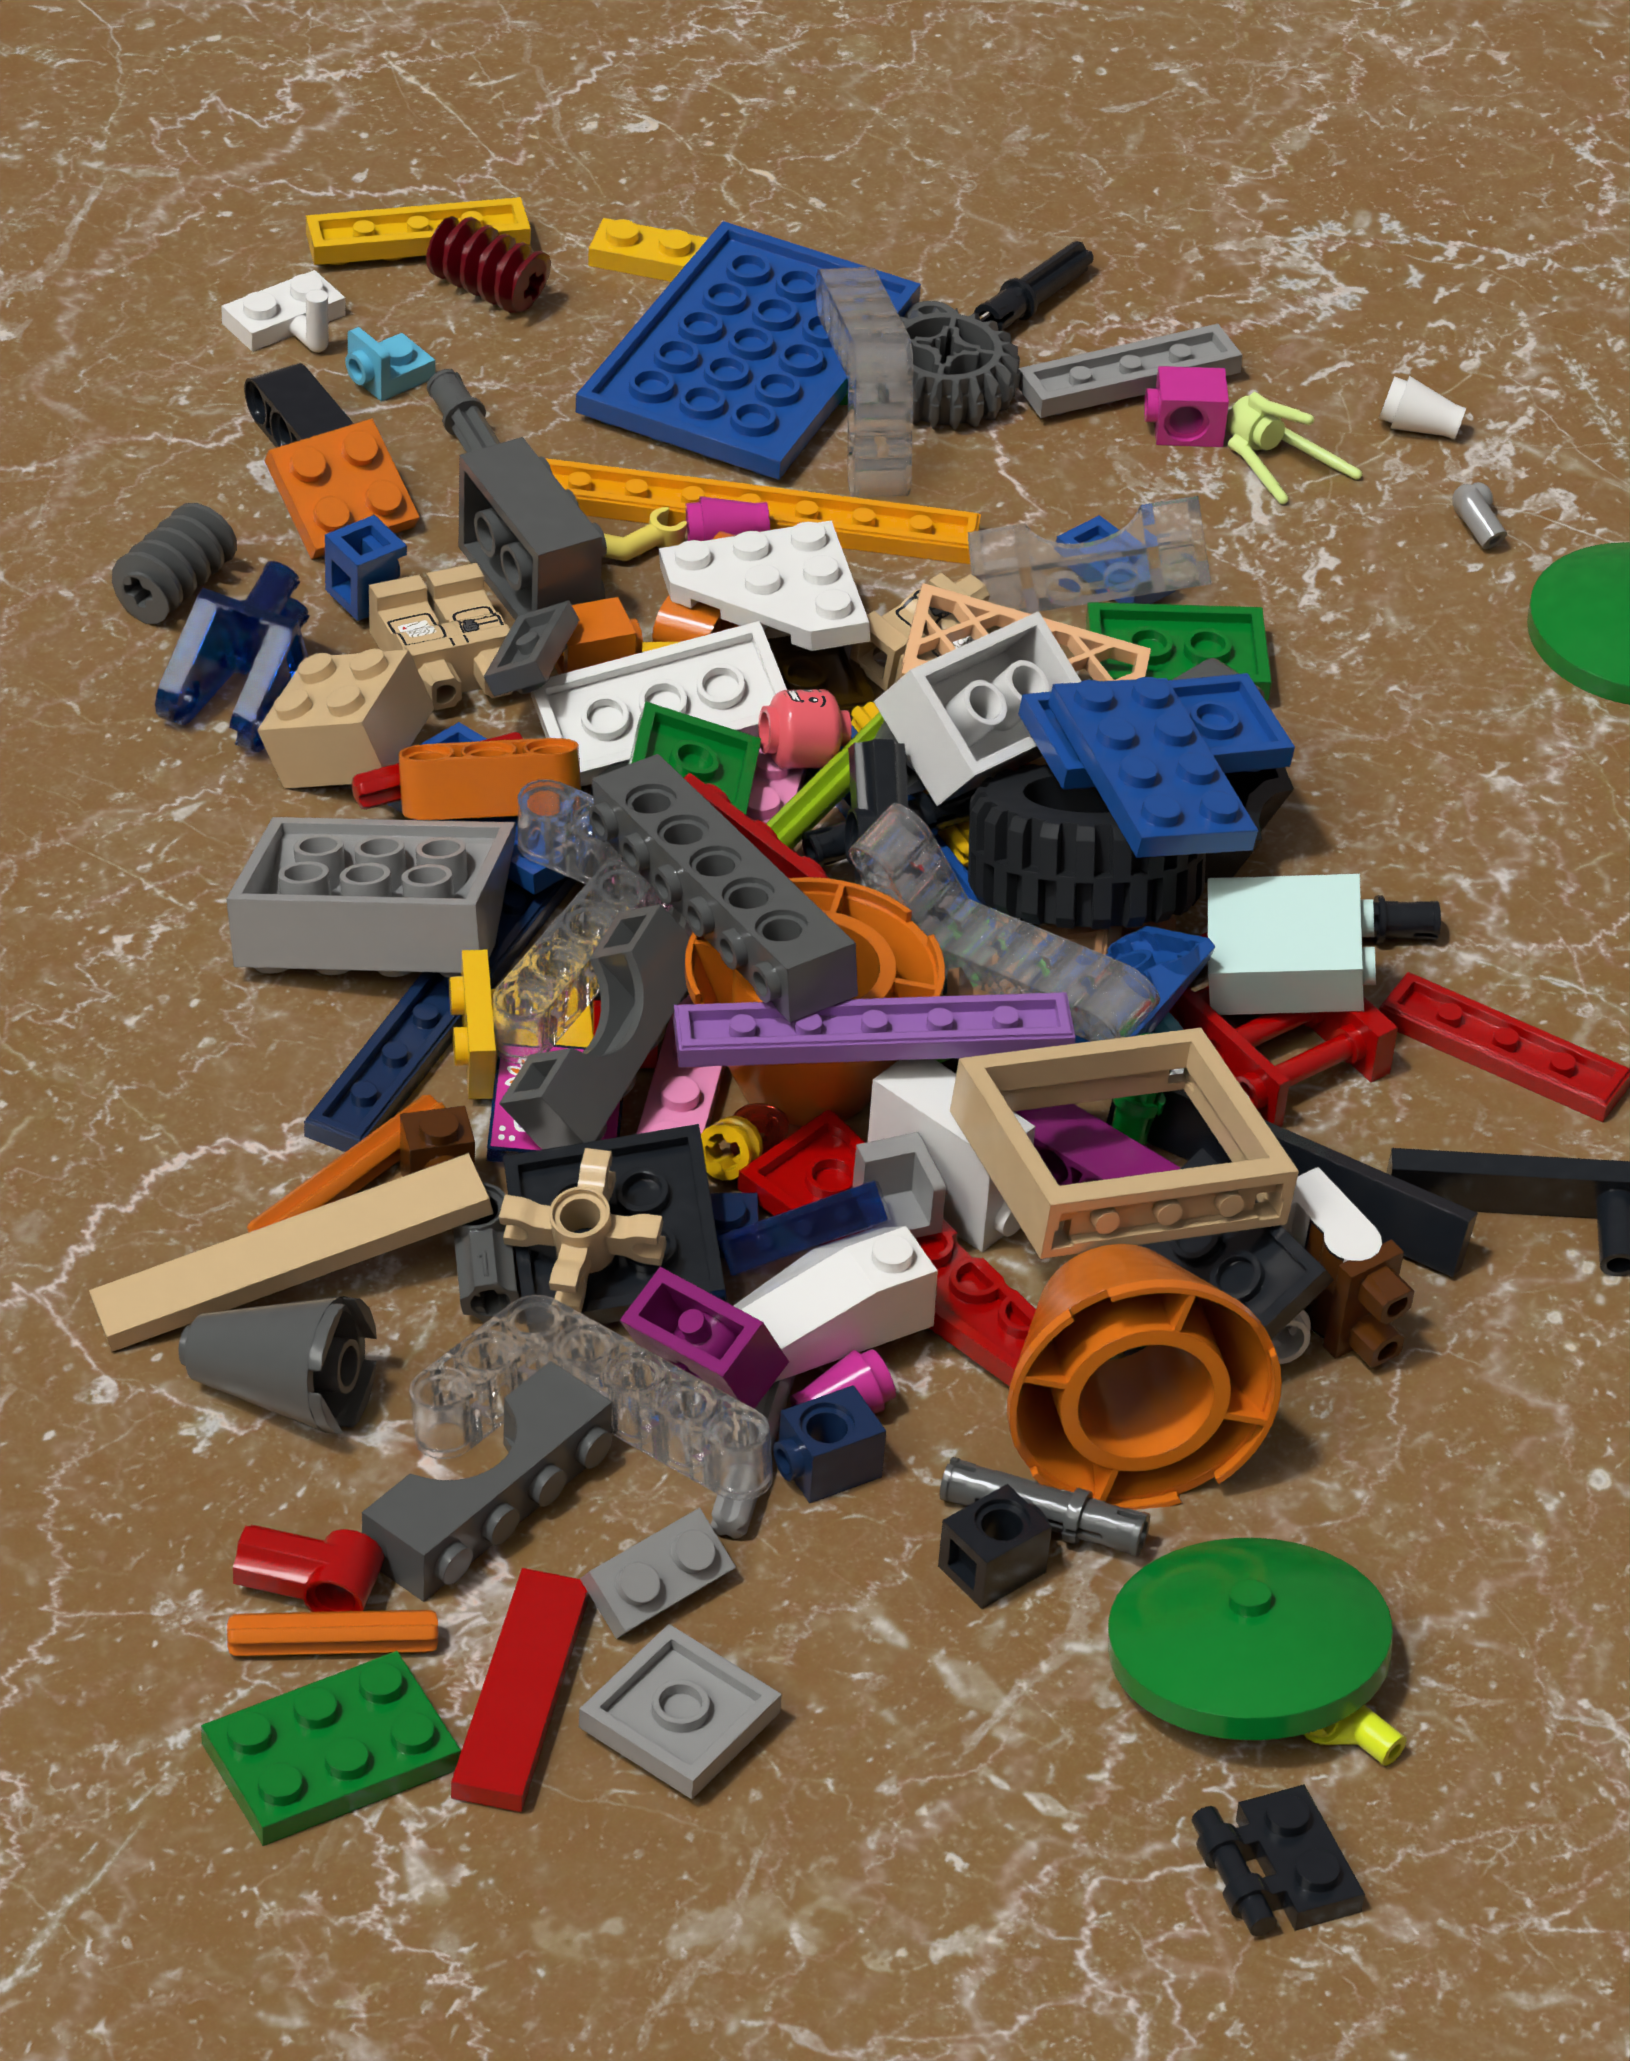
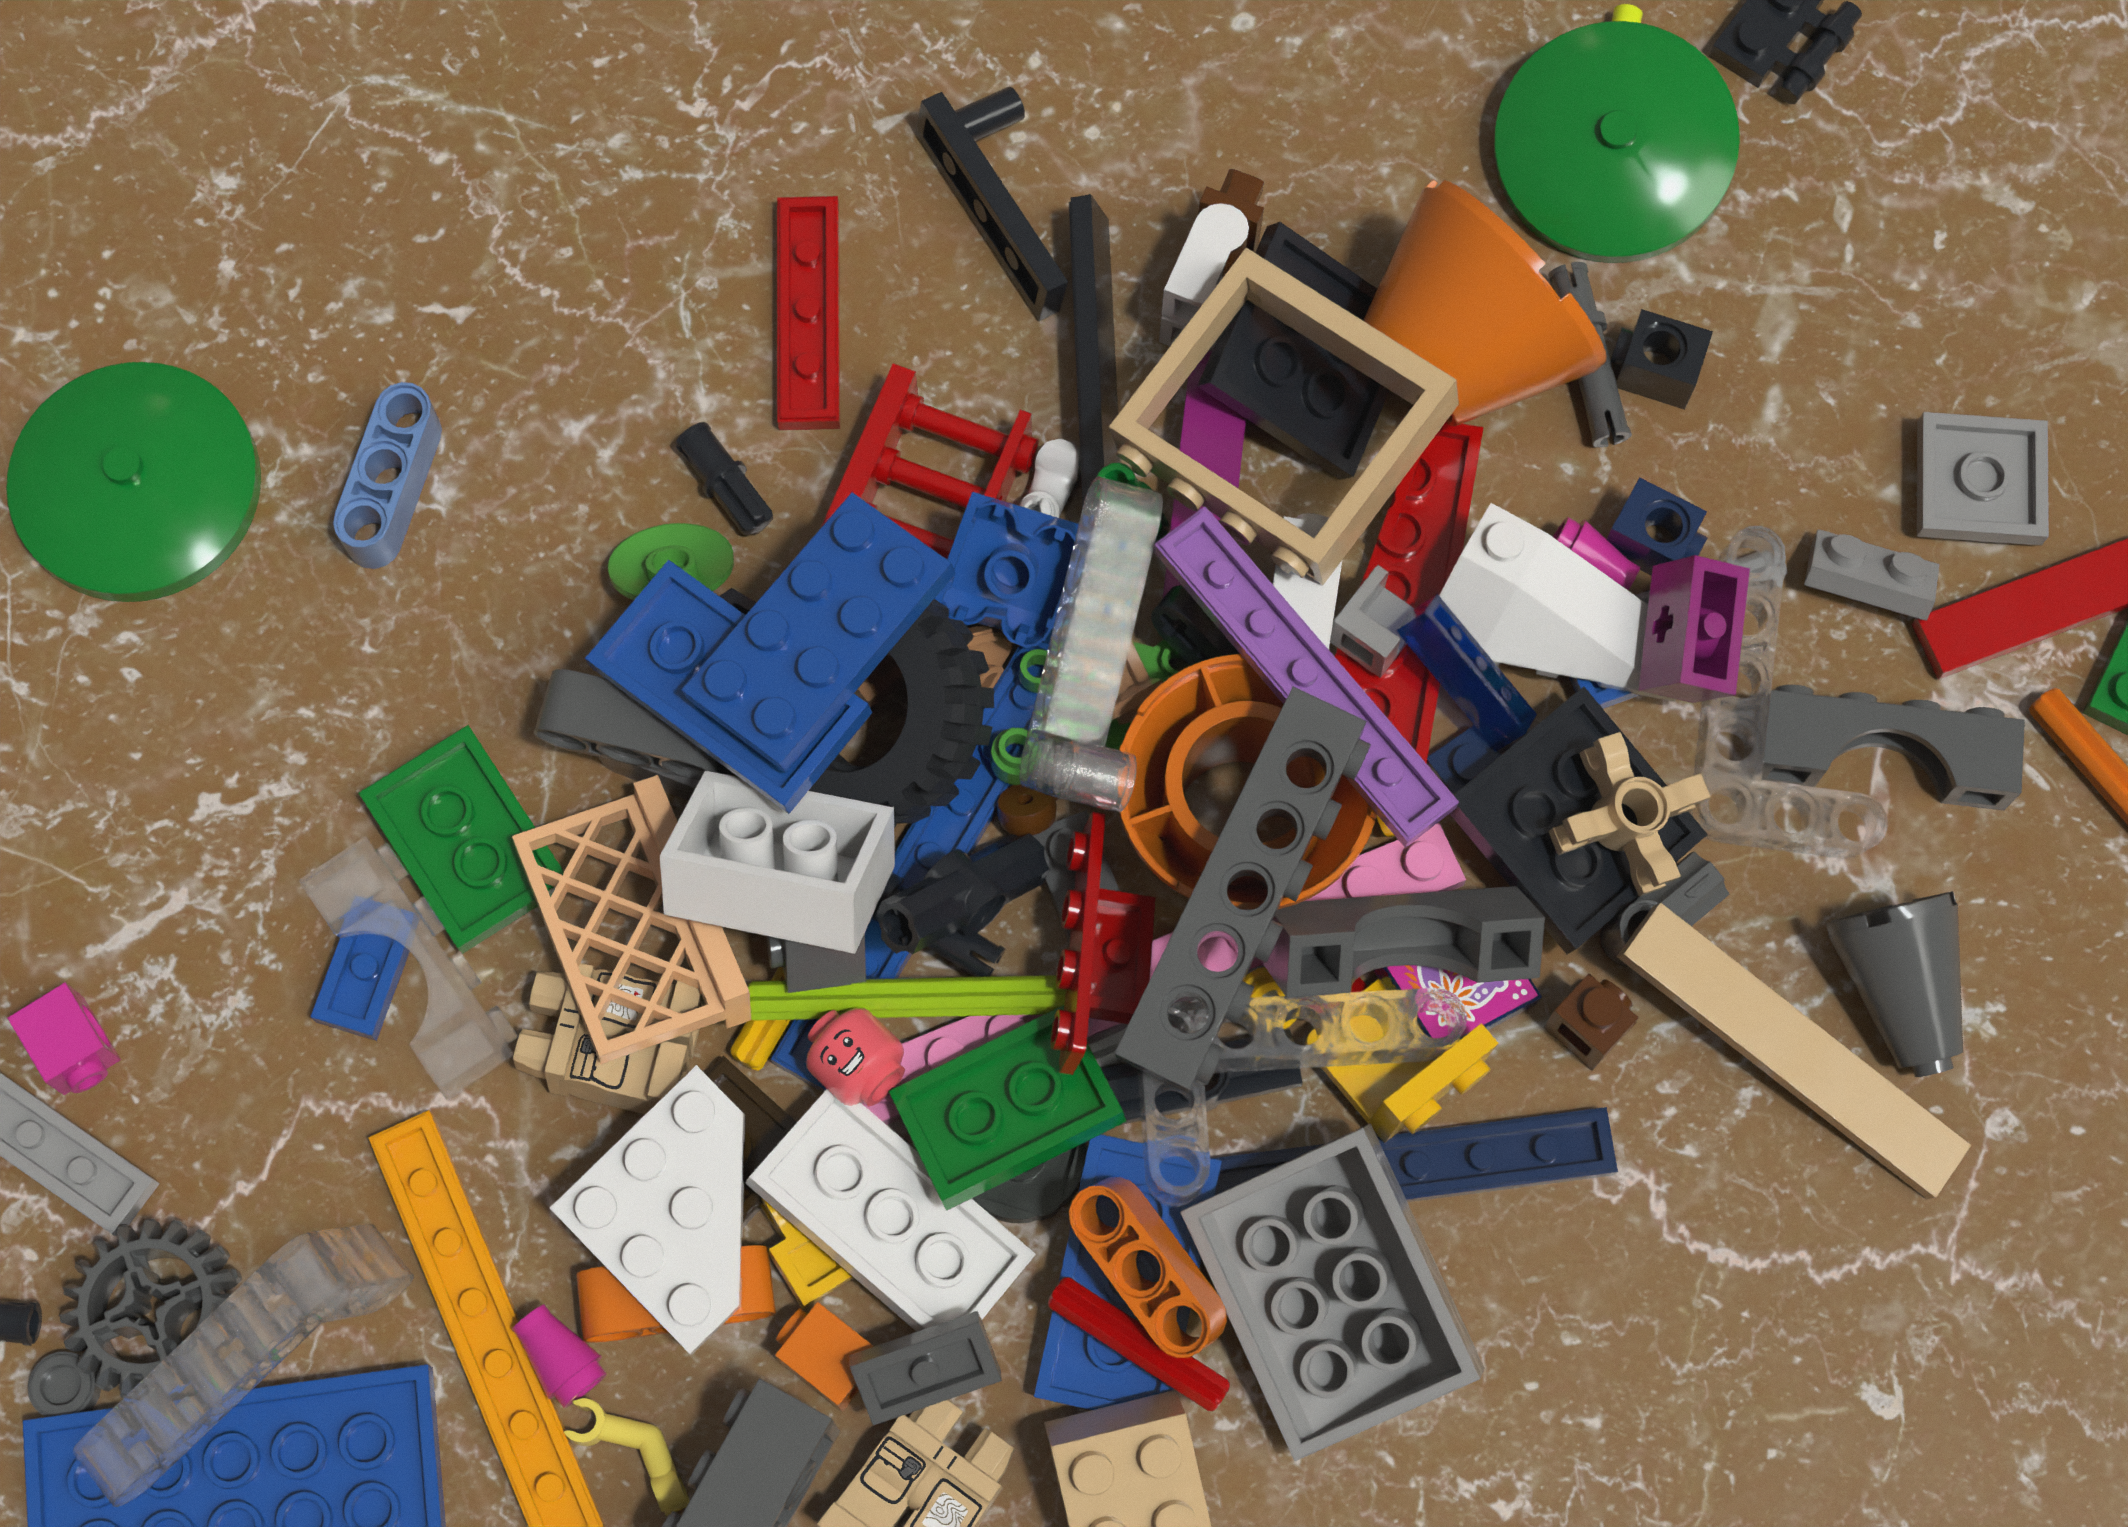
camera: 120 degrees left, 30 degrees up
(325, 1574) = (2065, 803): red piece -> none
(347, 1172) = (1645, 1095): orange axle -> none
(1258, 426) = (50, 960): yellowish green plant -> none
(1289, 944) = (884, 456): light aqua brick -> none
(1319, 836) = (691, 547): none -> bright green dish
(1473, 507) = (66, 695): light grey arm -> none
(1534, 737) = (380, 449): none -> medium blue beam

